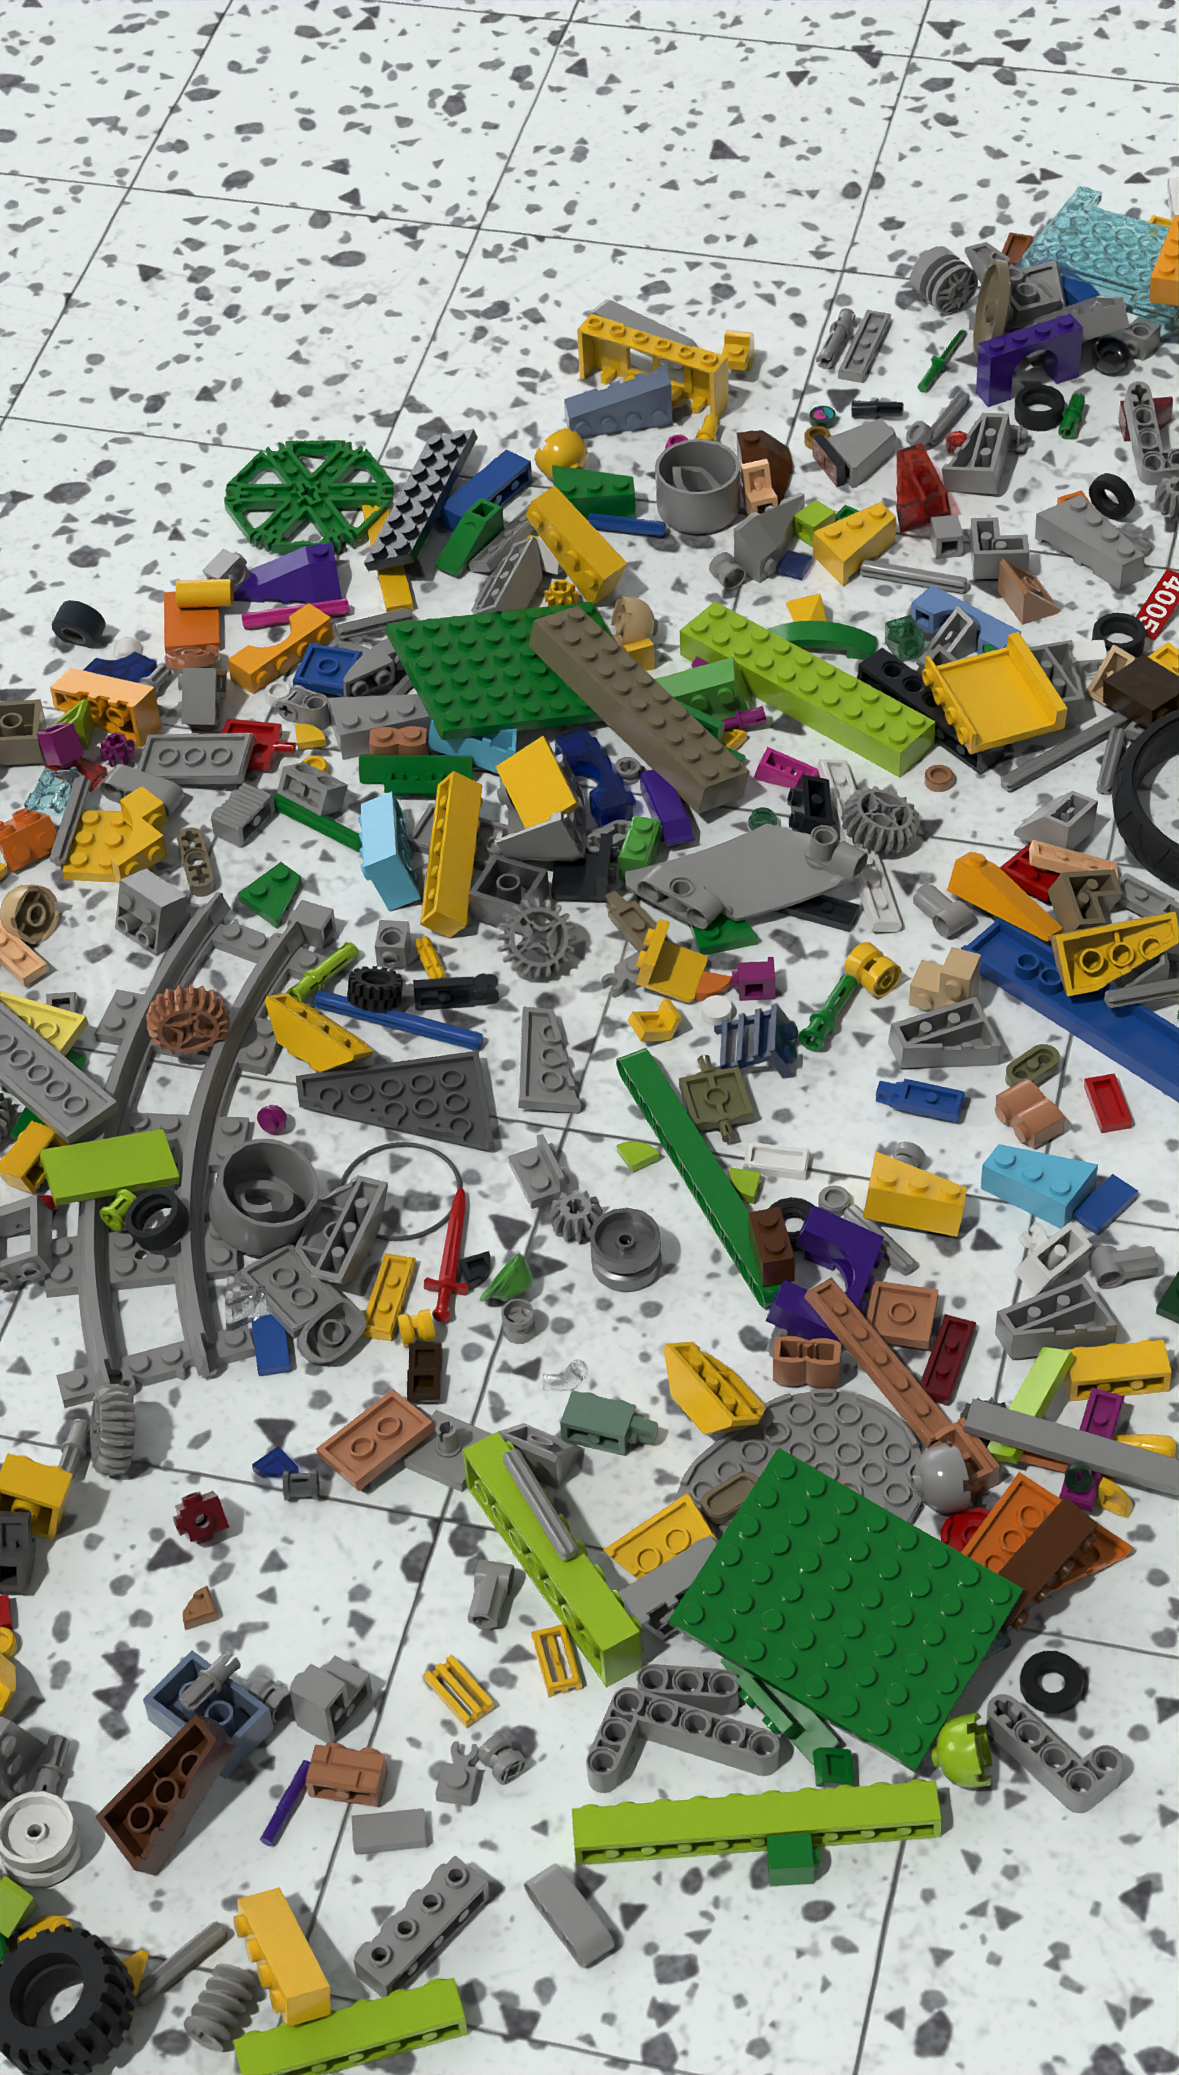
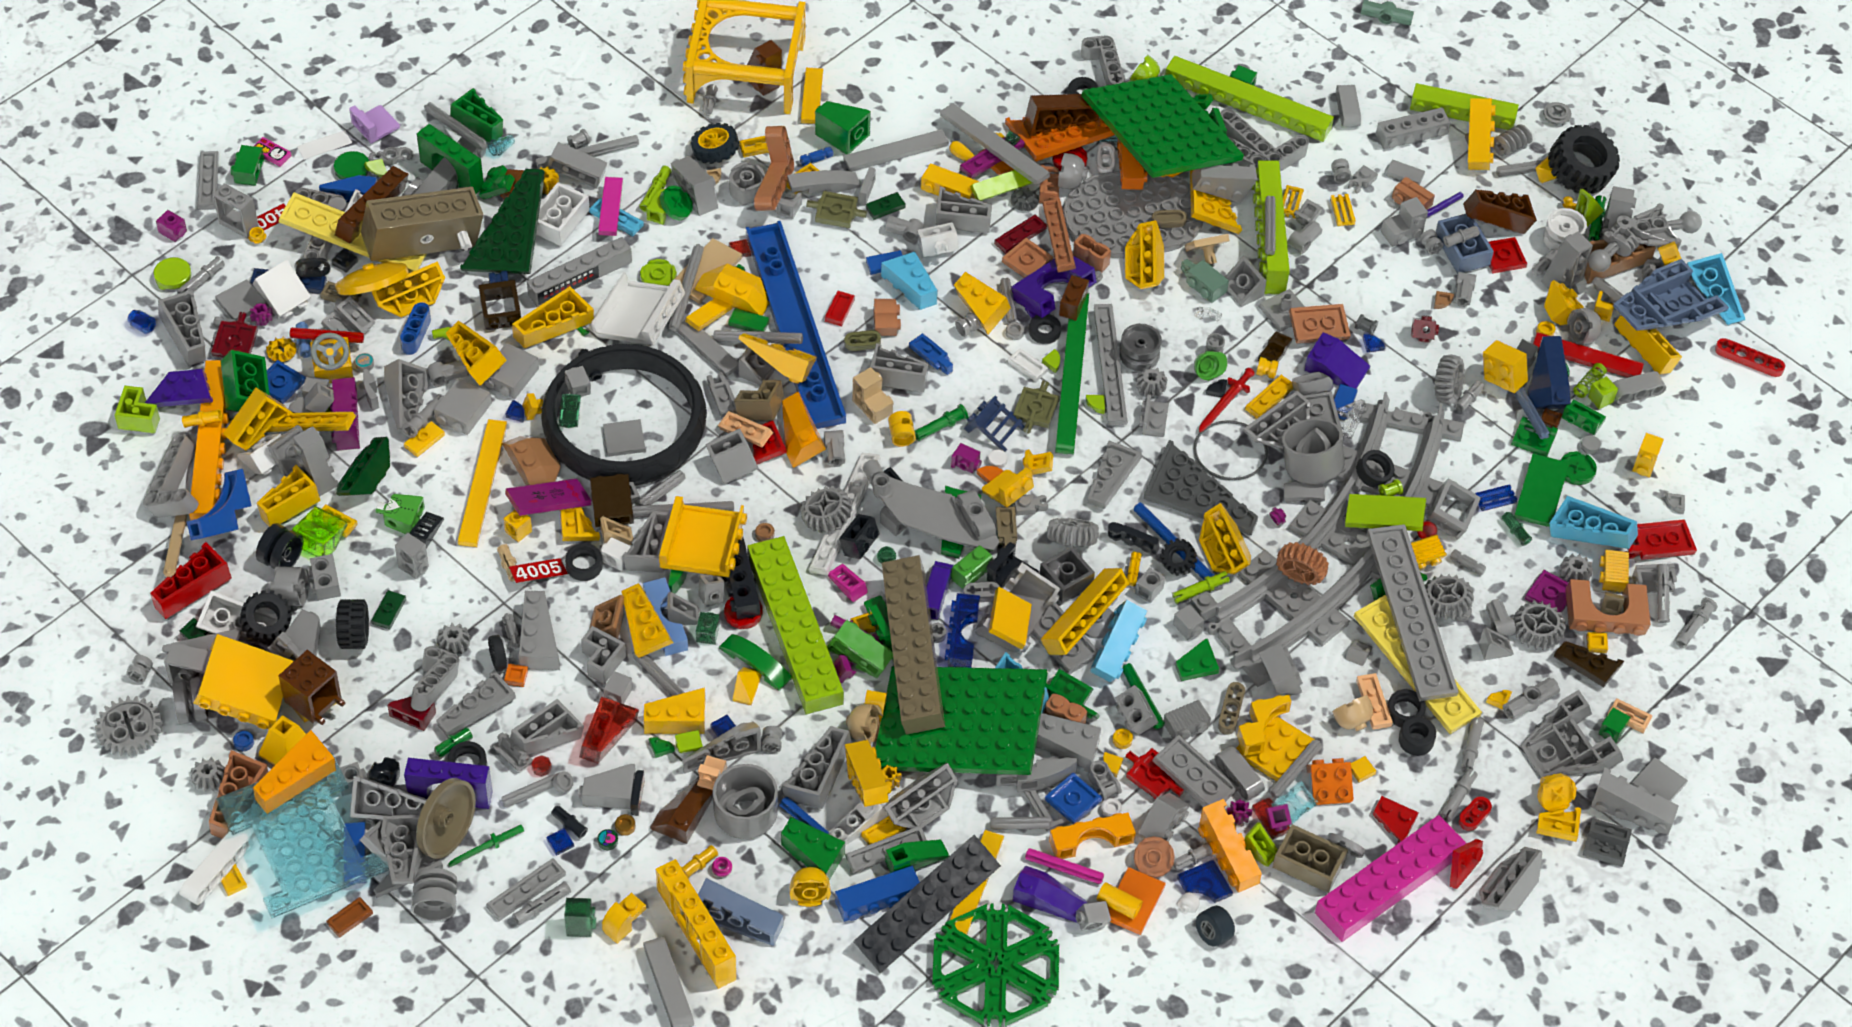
camera: 155 degrees left, 5 degrees up
(125, 1749) = (1506, 255): none -> red tile
(169, 1639) = (1465, 285): none -> light grey piece
(313, 1392) = (1336, 361): none -> dark purple slope
(511, 1635) = (1308, 212): none -> light grey bracket
(637, 1473) = (1207, 246): none -> tan tile
(644, 547) = (817, 774): none -> light grey wedge
(676, 1236) = (1110, 364): none -> light grey plate
(780, 327) = (579, 917): none -> clear green brick
(870, 392) = (560, 841): none -> clear blue tile
(980, 595) = (644, 623): none -> yellow wing
(1085, 455) = (483, 700): none -> light grey wing

